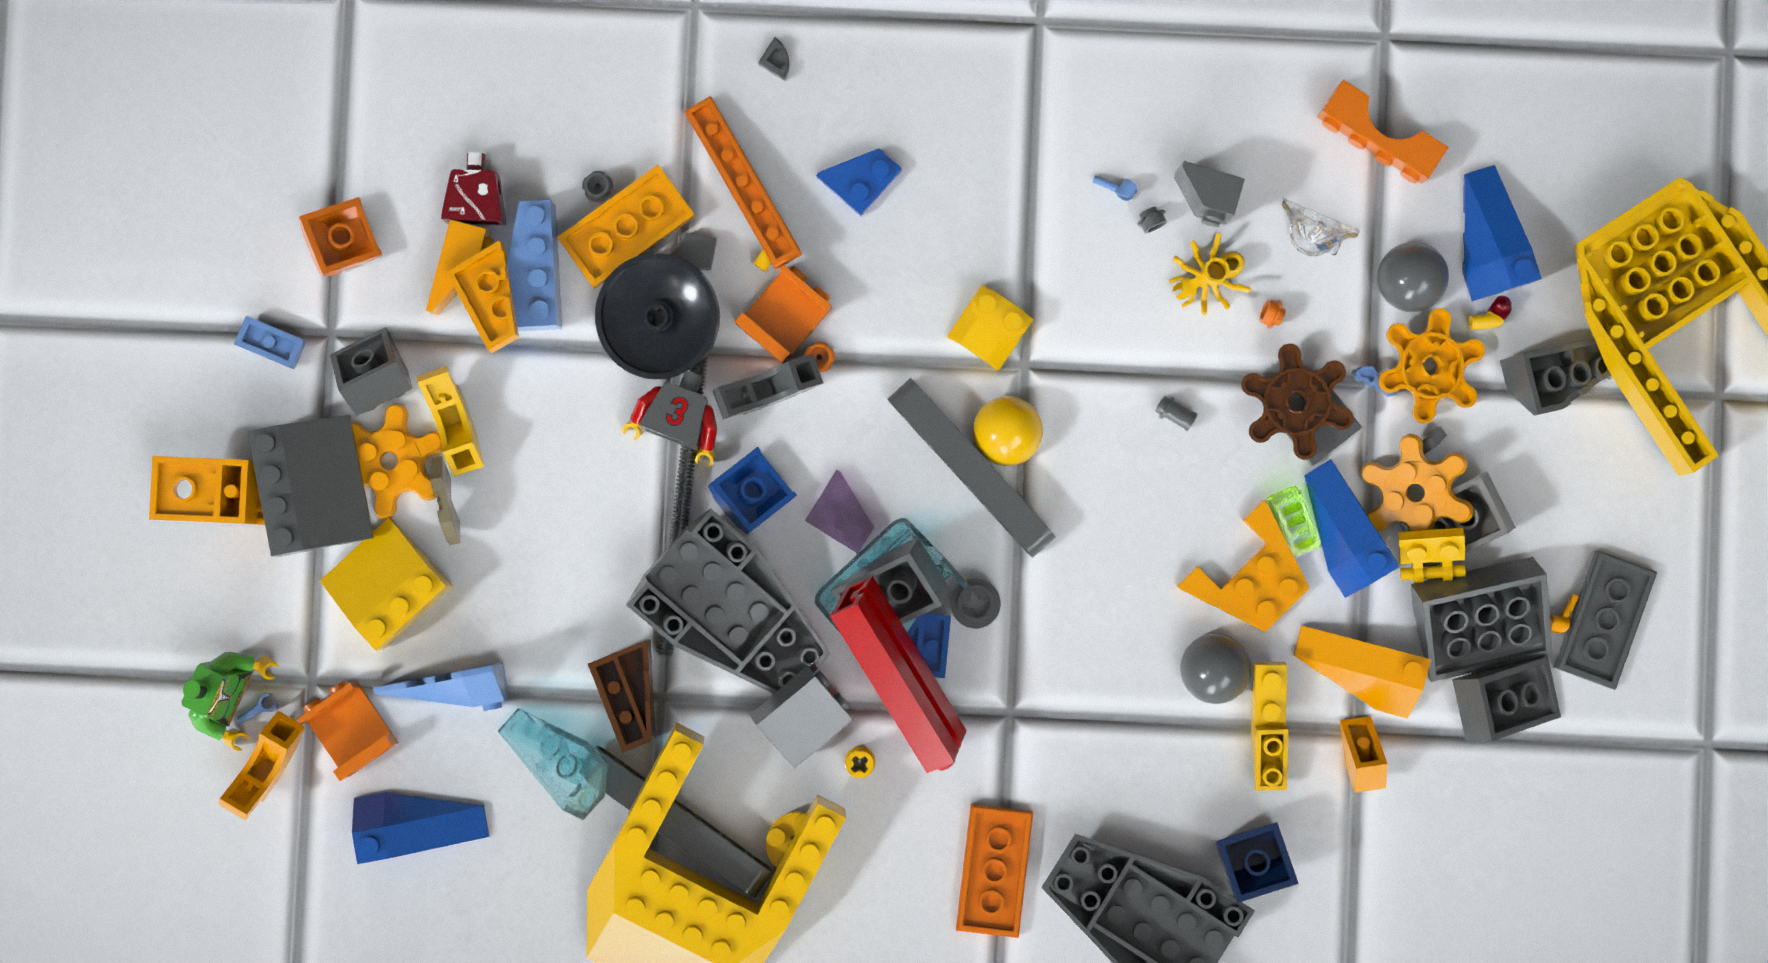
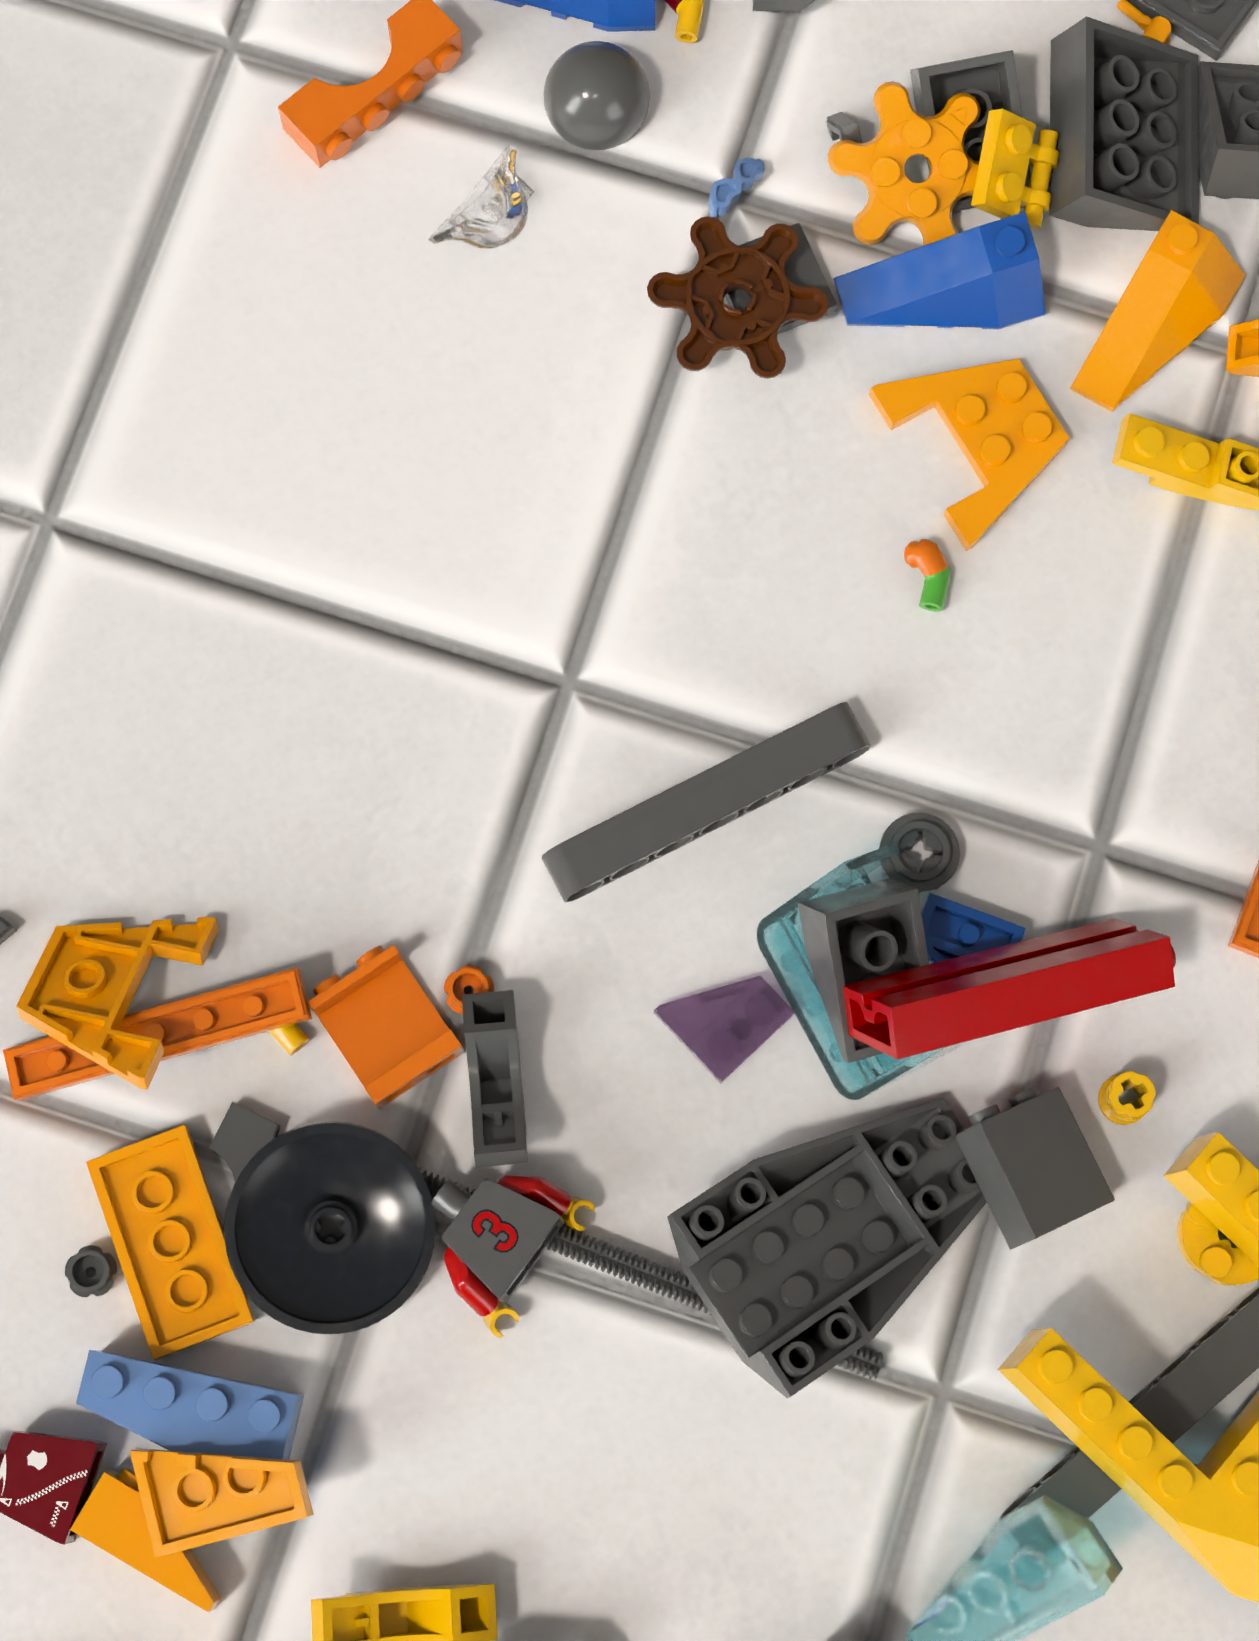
camera: 75 degrees left, 10 degrees down
(627, 693) = (928, 1441): reddish brown wedge -> none
(750, 491) = (654, 1153): blue slope -> none
(764, 134) = (90, 981): none -> light orange wing
(861, 179) = (208, 852): blue wing -> none
(990, 327) = (496, 716): yellow slope -> none
(1007, 430) = (664, 732): yellow piece -> none
(1124, 191) = (347, 465): medium blue hand -> none
(1152, 219) = (402, 435): dark grey plate -> none
(1157, 569) = (935, 570): none -> arm
(1175, 412) = (704, 479): dark grey pin -> none
(1209, 192) = (388, 336): dark grey slope -> none
(1213, 273) = (510, 369): yellow animal -> none
(1215, 668) = (1107, 524): dark grey piece -> none
(1272, 313) = (594, 302): orange plate -> none
(1284, 497) = (882, 357): clear neon green slope -> none
(1450, 362) = (735, 76): light orange plate -> none

